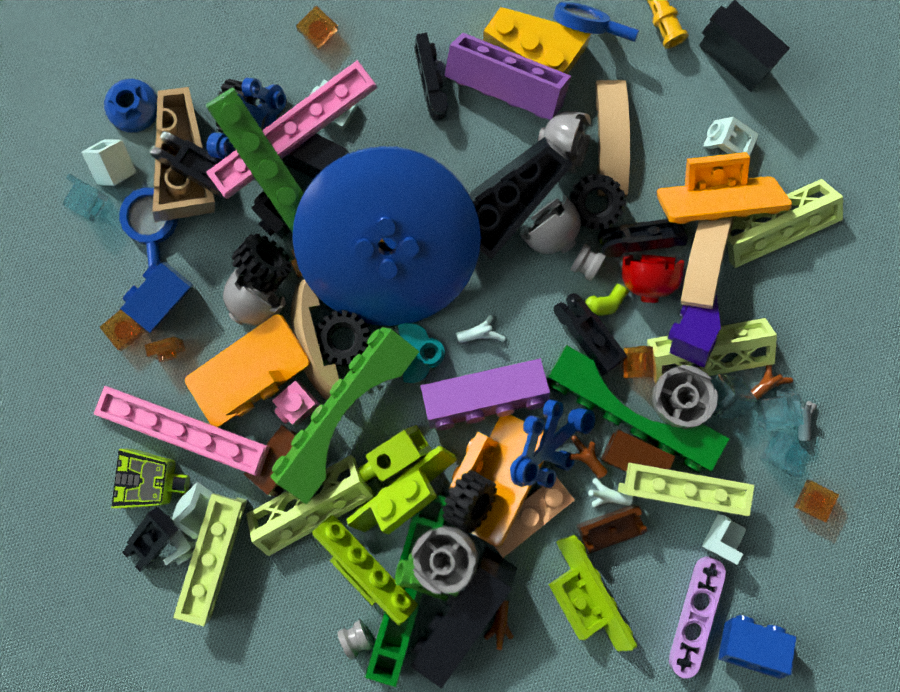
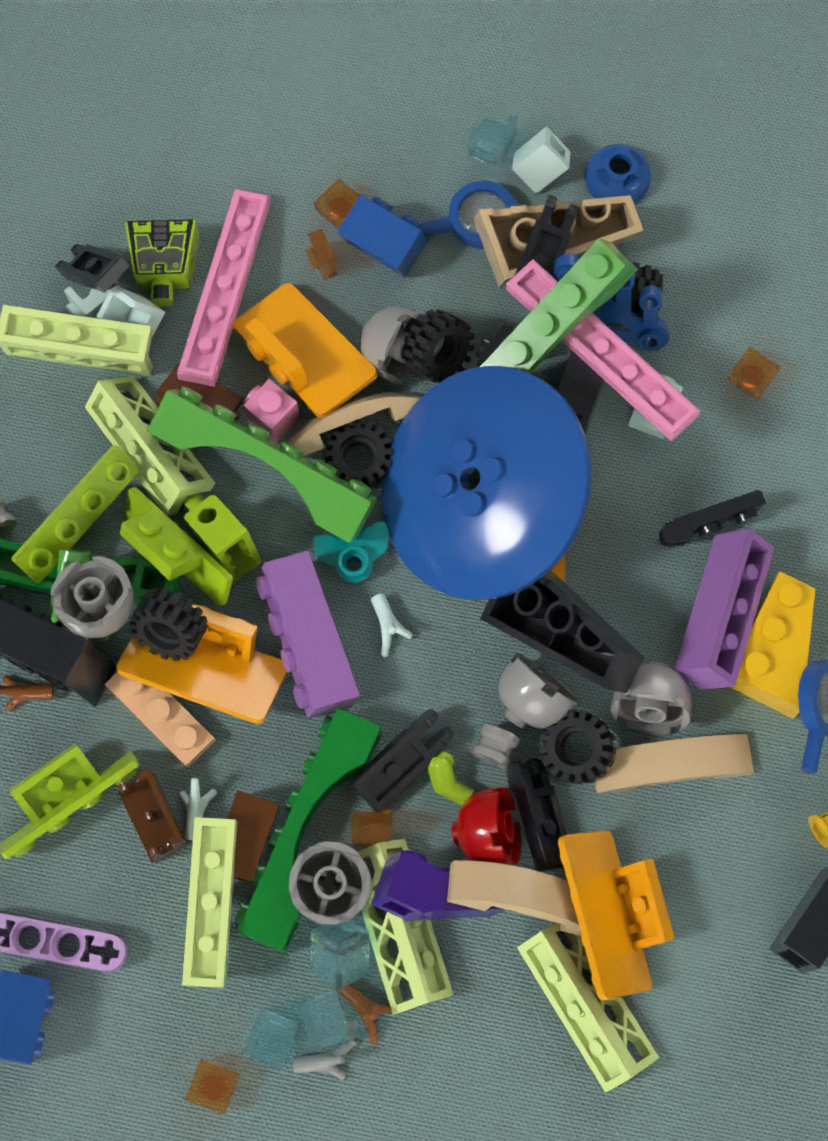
camera: 80 degrees right, 10 degrees down
(526, 466) = (288, 758): blue plant -> none
(588, 456) = (241, 777): dark orange bar -> none
(725, 538) = (152, 968): light aqua panel -> none
(730, 136) = (695, 922): light aqua bracket -> none

